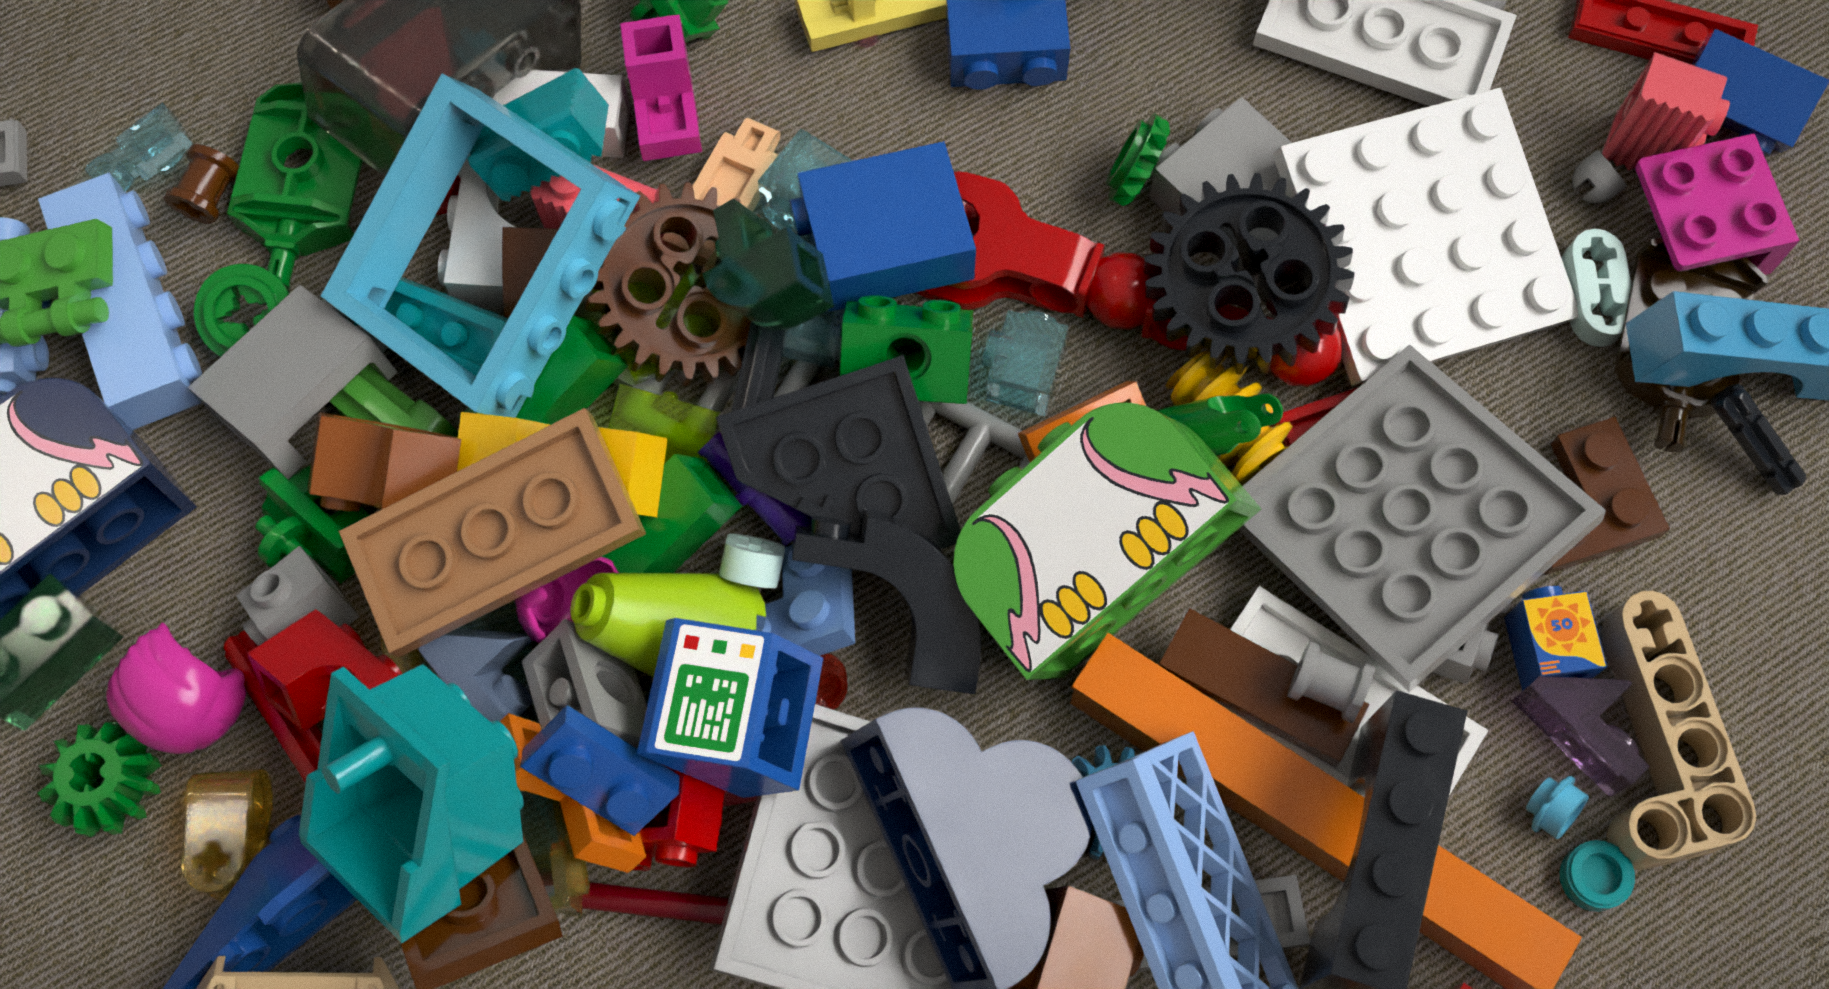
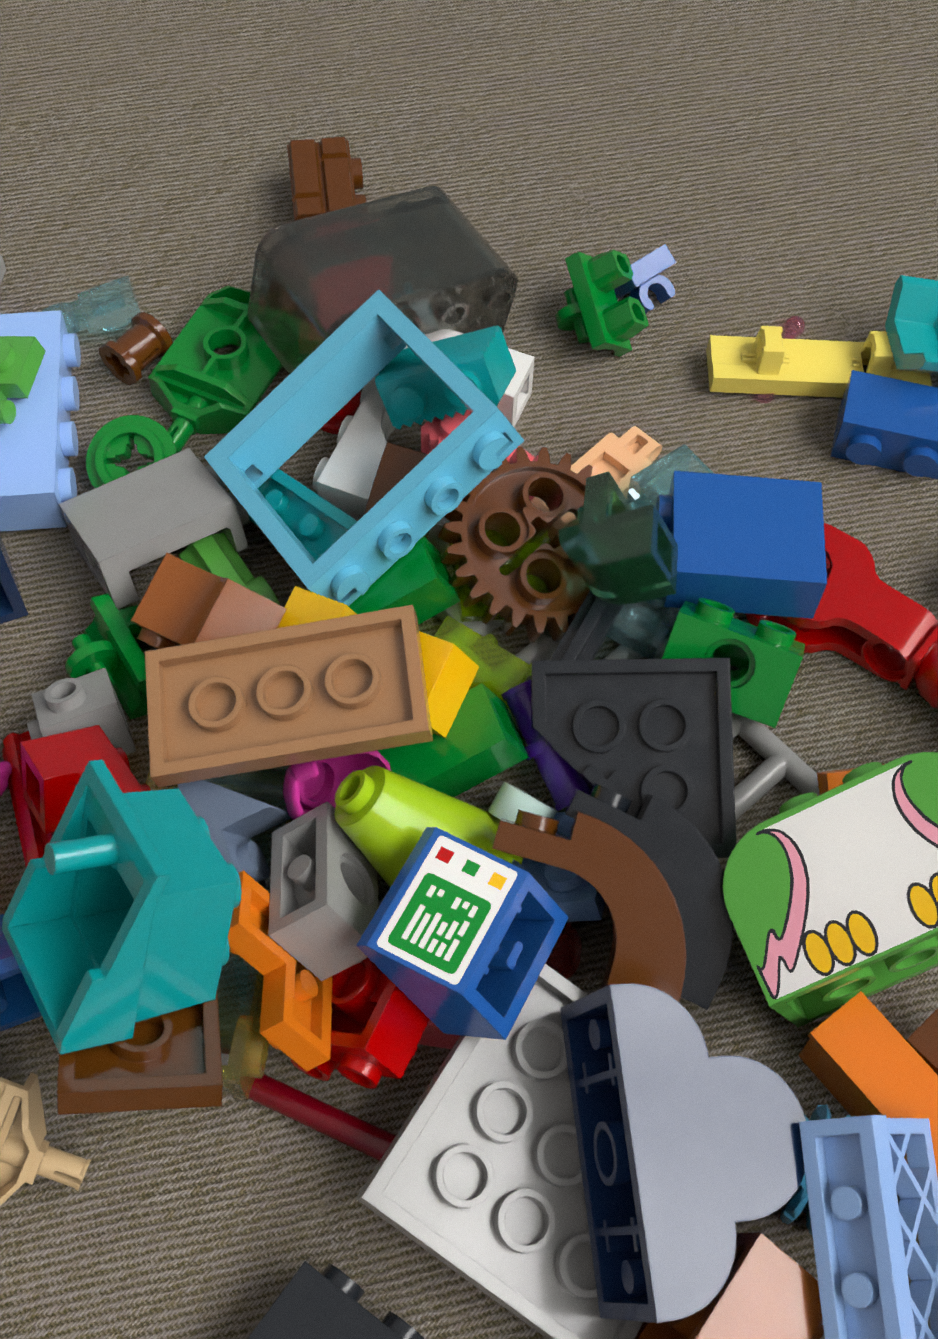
camera: 15 degrees right, 10 degrees down
(599, 770) = (314, 955): blue plate -> none
(661, 87) = (566, 376): dark pink brick -> none
(866, 606) = (644, 914): none -> reddish brown arch
(1024, 360) = (840, 711): clear light blue brick -> none

